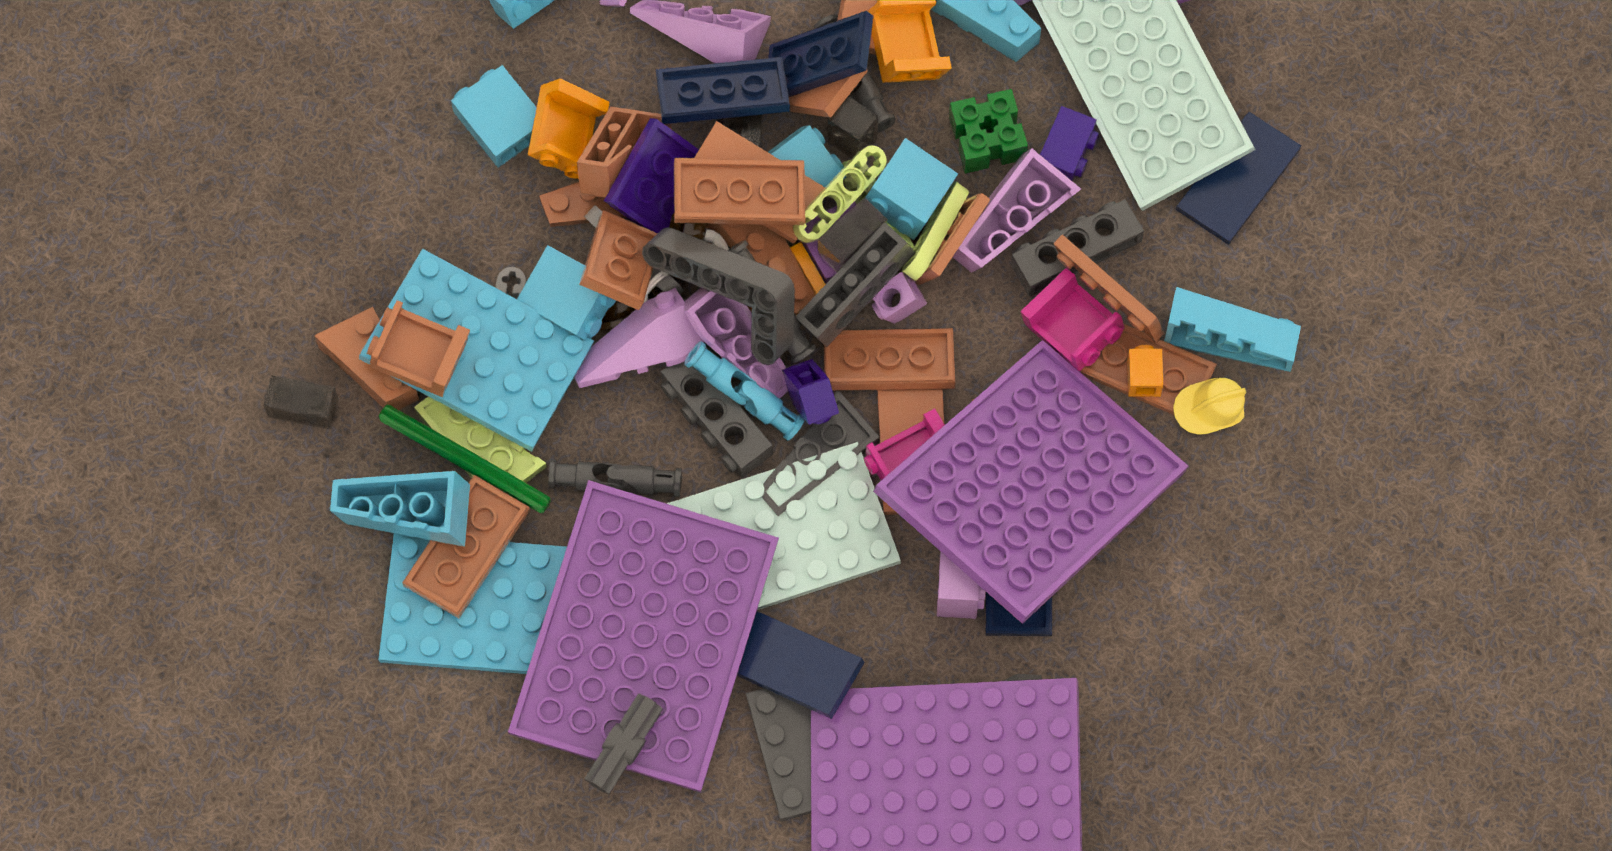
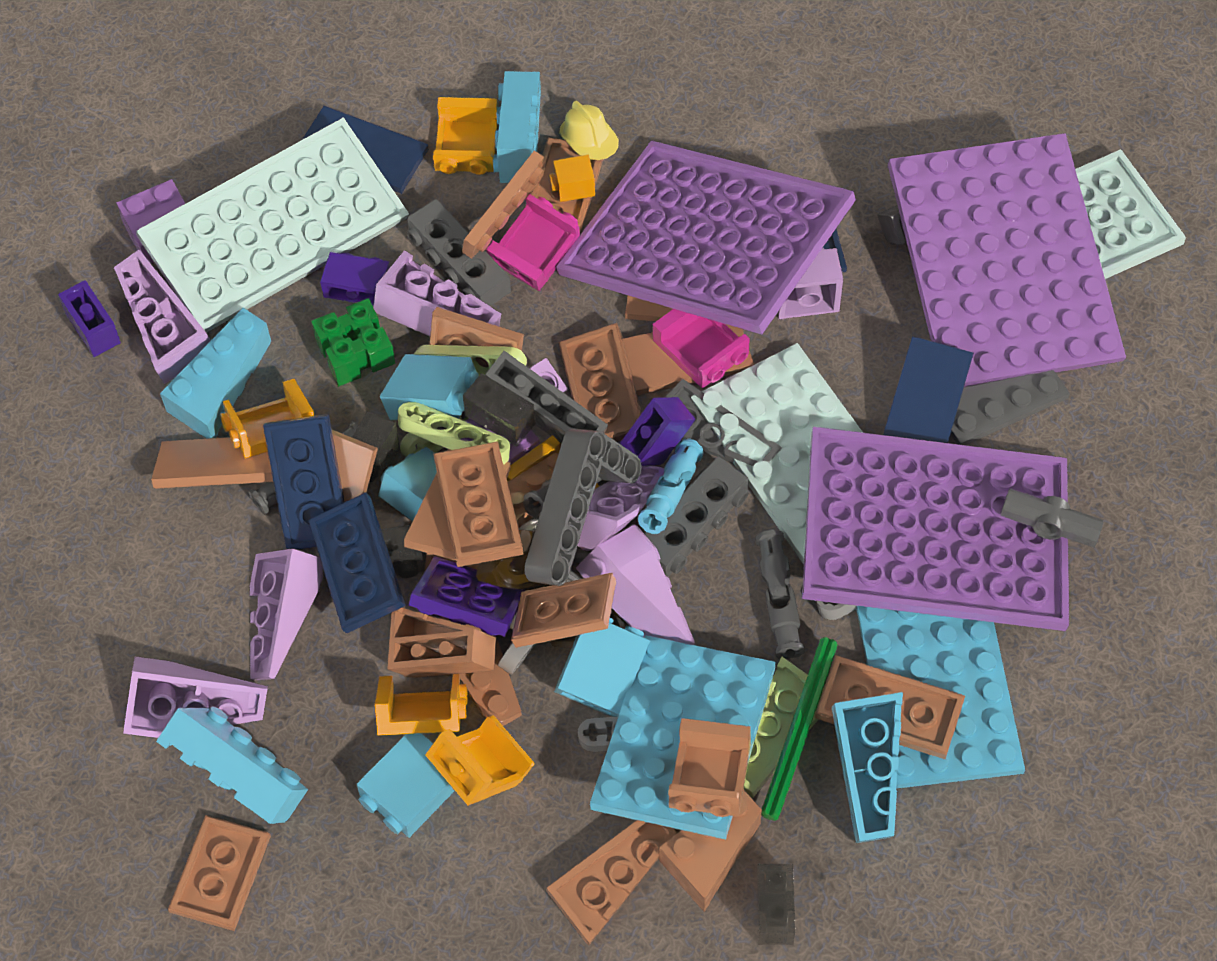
camera: 100 degrees left, 10 degrees down
(362, 261) = (607, 877): none -> nougat wing
(497, 170) = (480, 761): none -> light orange panel
(1232, 276) = (466, 135): none -> light orange panel

